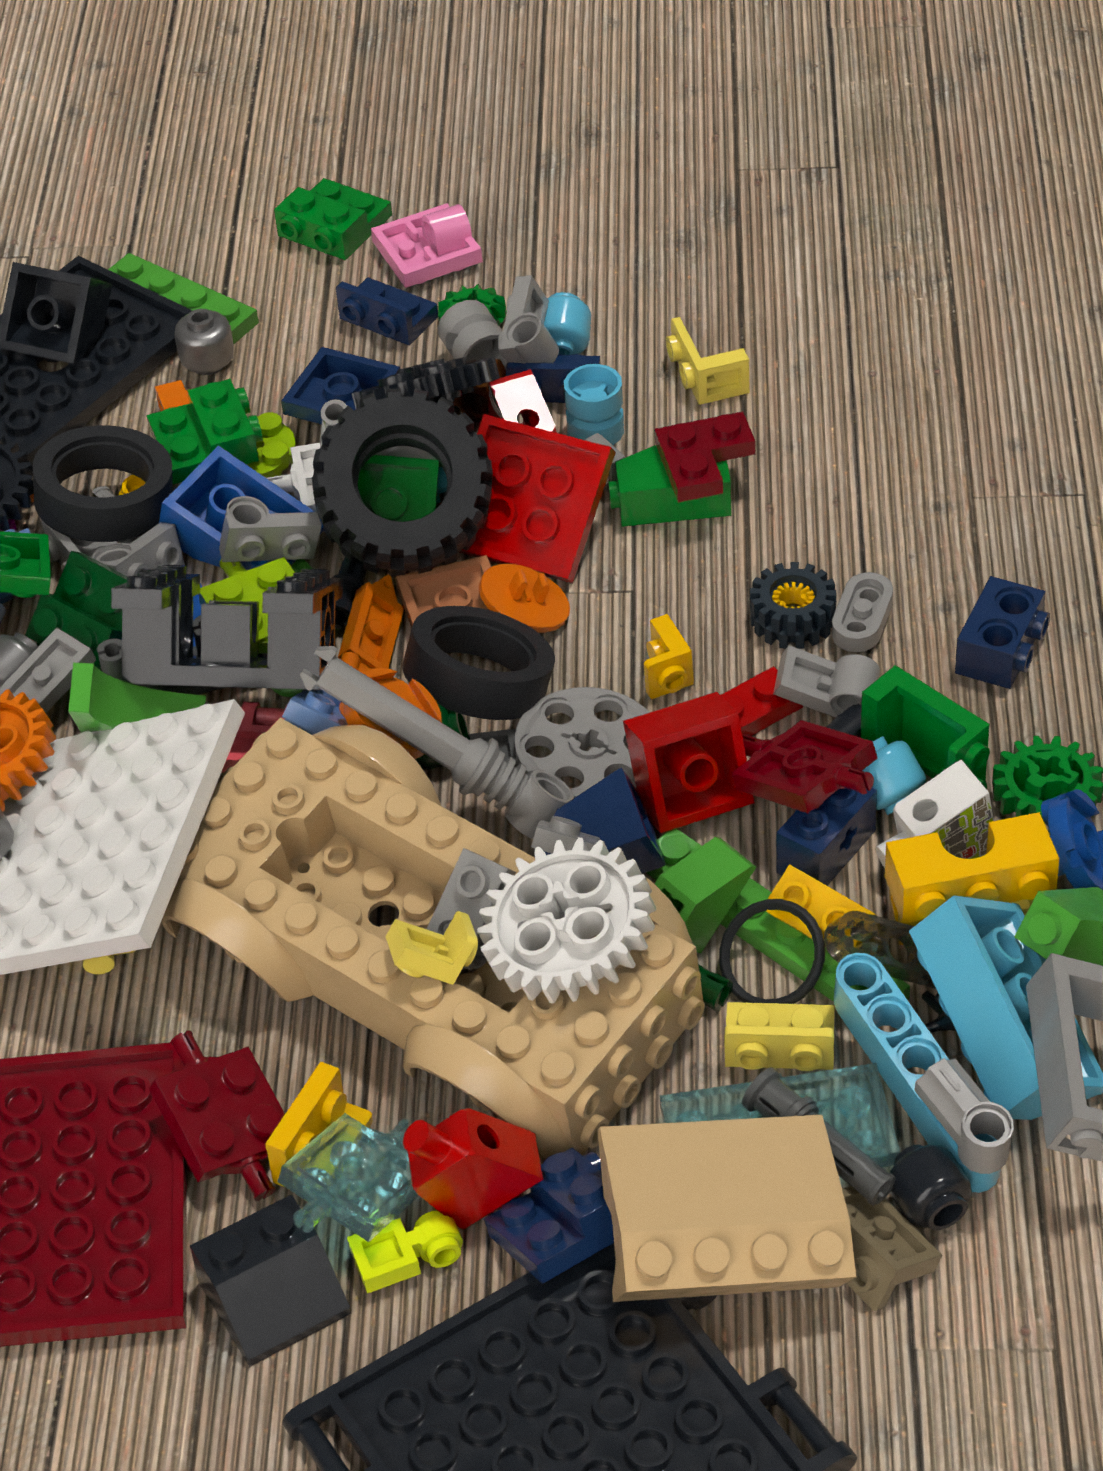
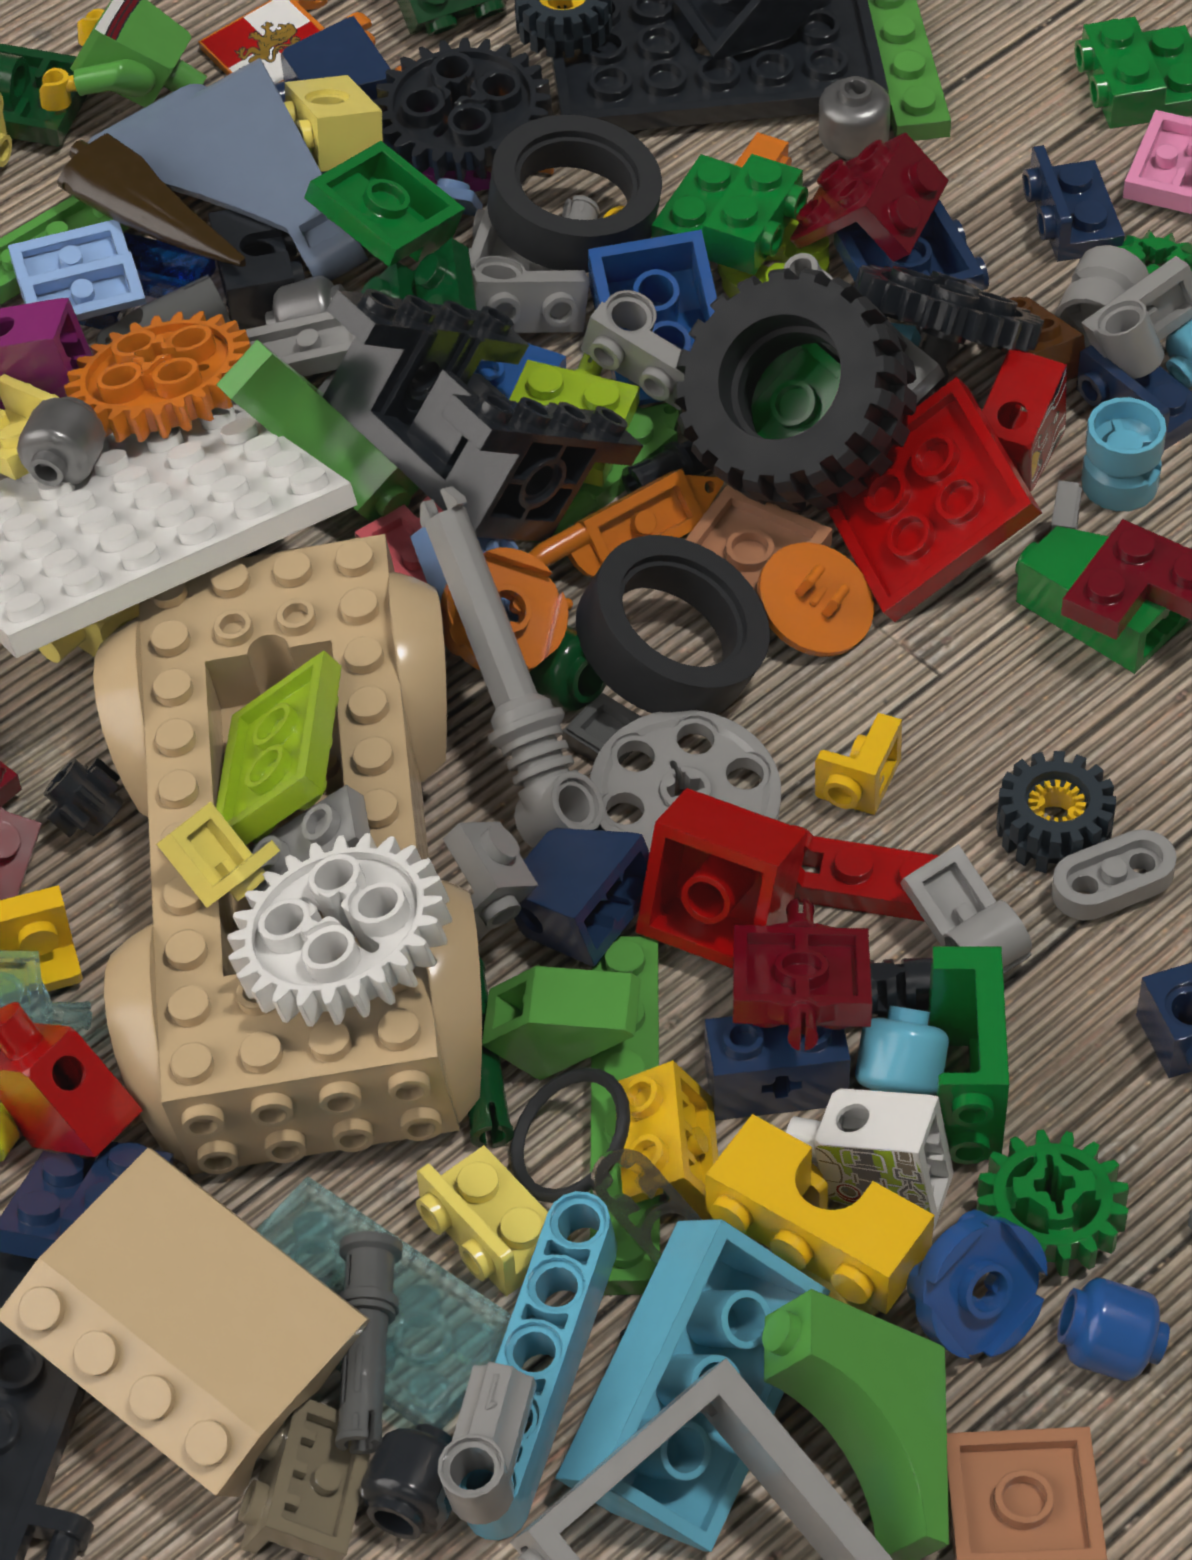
camera: 45 degrees right, 5 degrees up
(243, 1019) = (83, 797): none -> black gear
(283, 362) = (883, 189): none -> dark red bracket
(380, 870) = (280, 750): none -> lime plate

